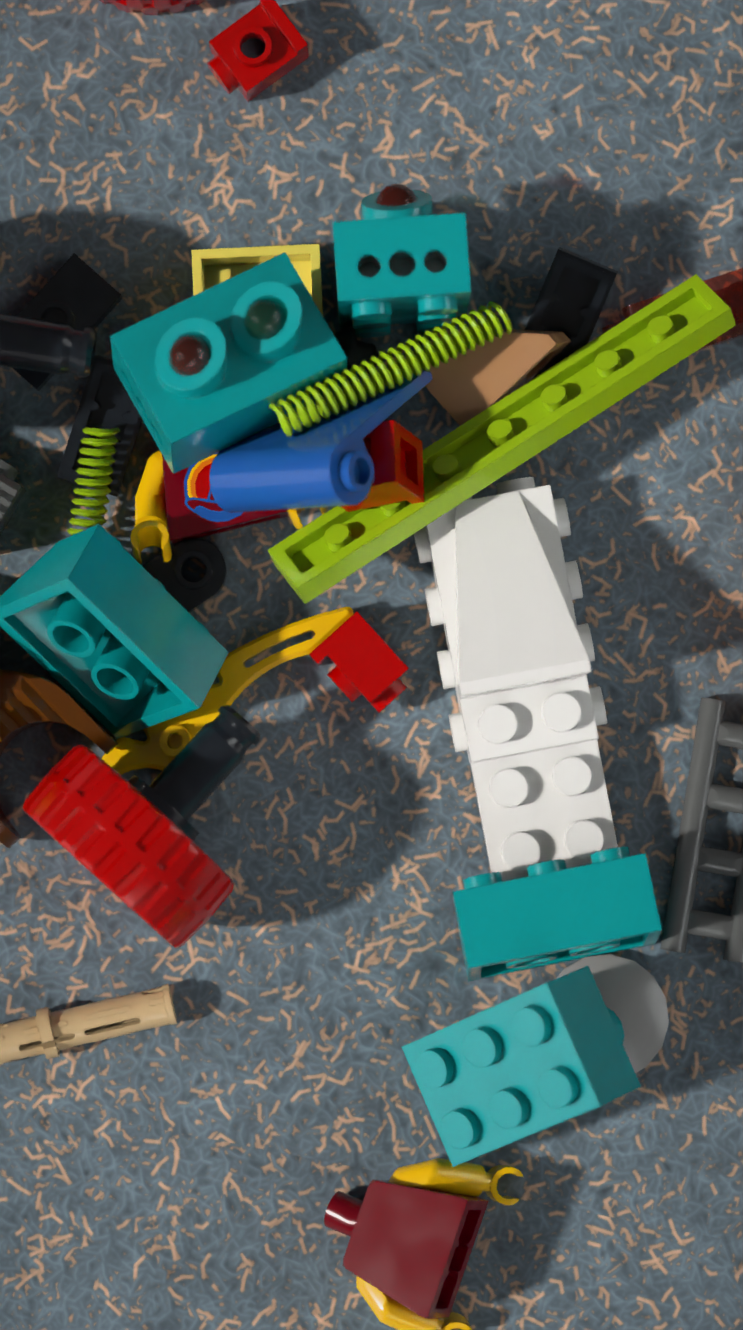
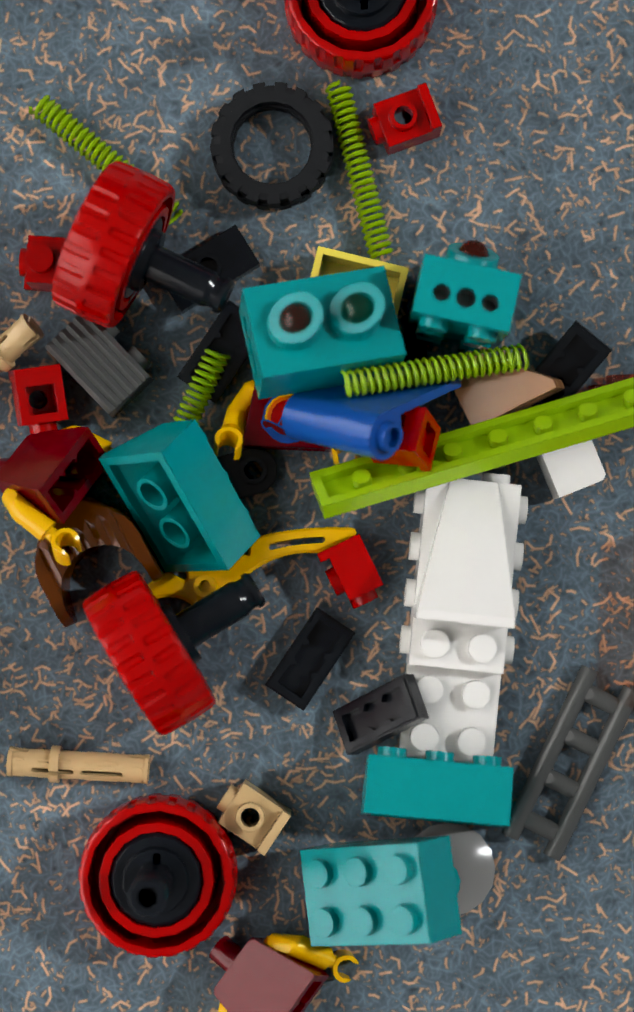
camera: 20 degrees right, 0 degrees up
(90, 69) = (263, 99): none -> black tyre
(226, 1135) = (158, 875): none -> red wheel
(237, 187) = (345, 97): none -> lime piece
(341, 795) = (310, 658): none -> black plate
(352, 1017) = (271, 812): none -> tan brick
(455, 839) = (380, 714): none -> black plate
(610, 443) = (571, 468): none -> white piece

